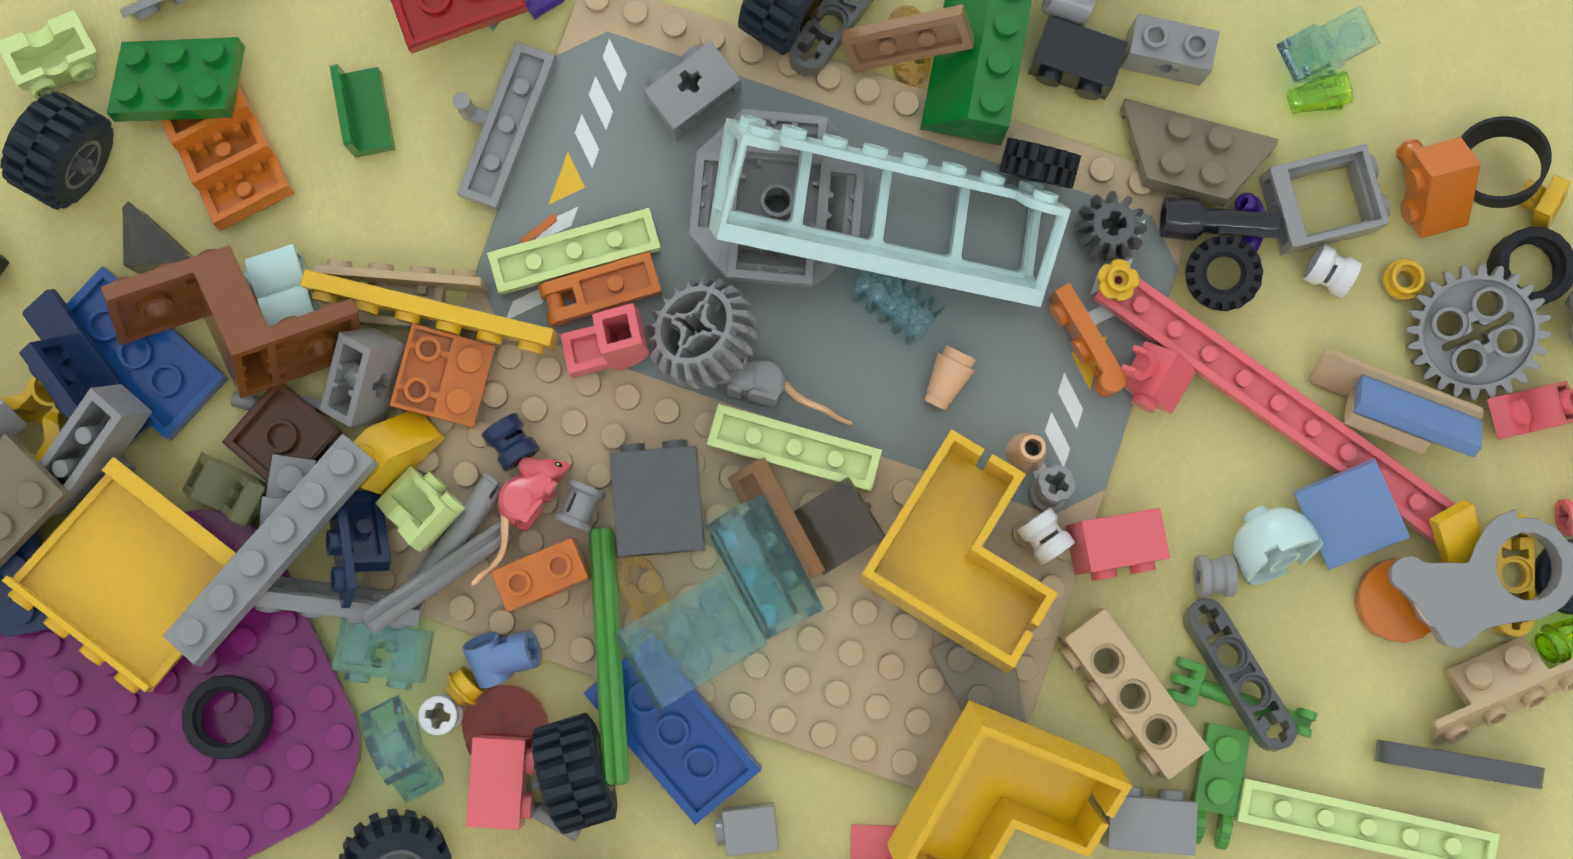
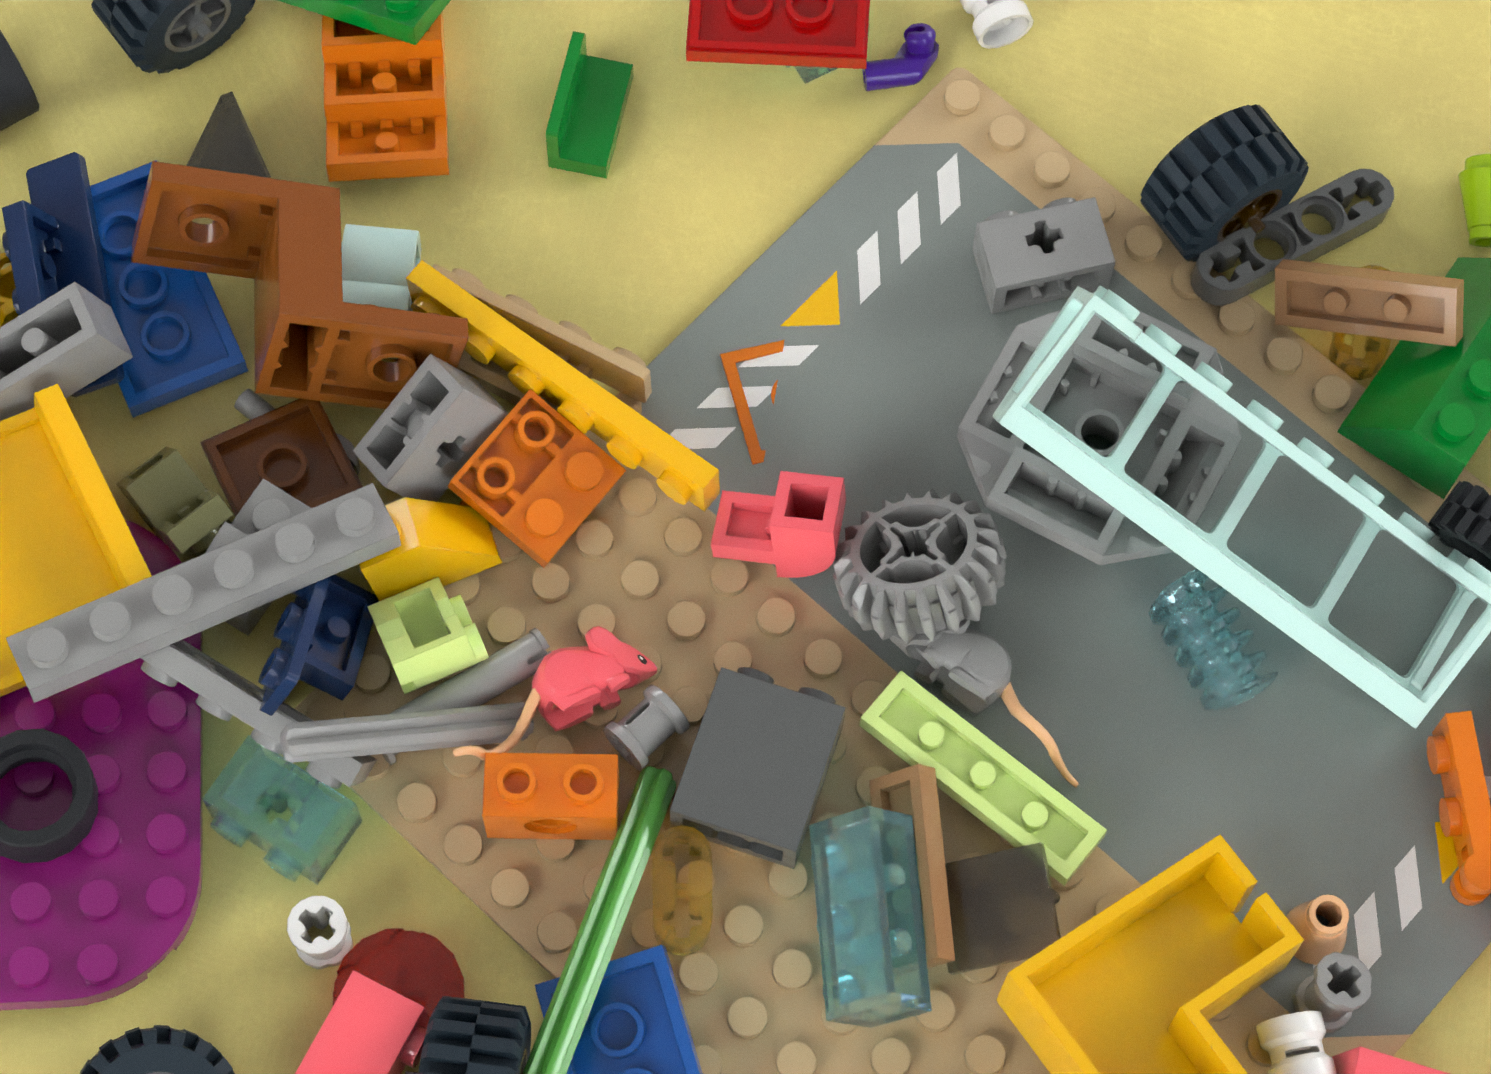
camera: 25 degrees right, 15 degrees down
(398, 750) = (240, 955): clear light blue brick -> none
(463, 687) = (369, 909): yellow plate -> none
(497, 658) = (432, 886): medium blue piece -> none
(504, 125) = (766, 202): light grey plate -> none
(510, 441) = (589, 599): dark blue wheel -> none
(573, 251) = (789, 395): yellowish green plate -> none
(601, 288) = (803, 448): orange plate -> none
(690, 640) = (720, 970): clear light blue plate -> none
(948, 376) = (1244, 774): light nougat cone -> none

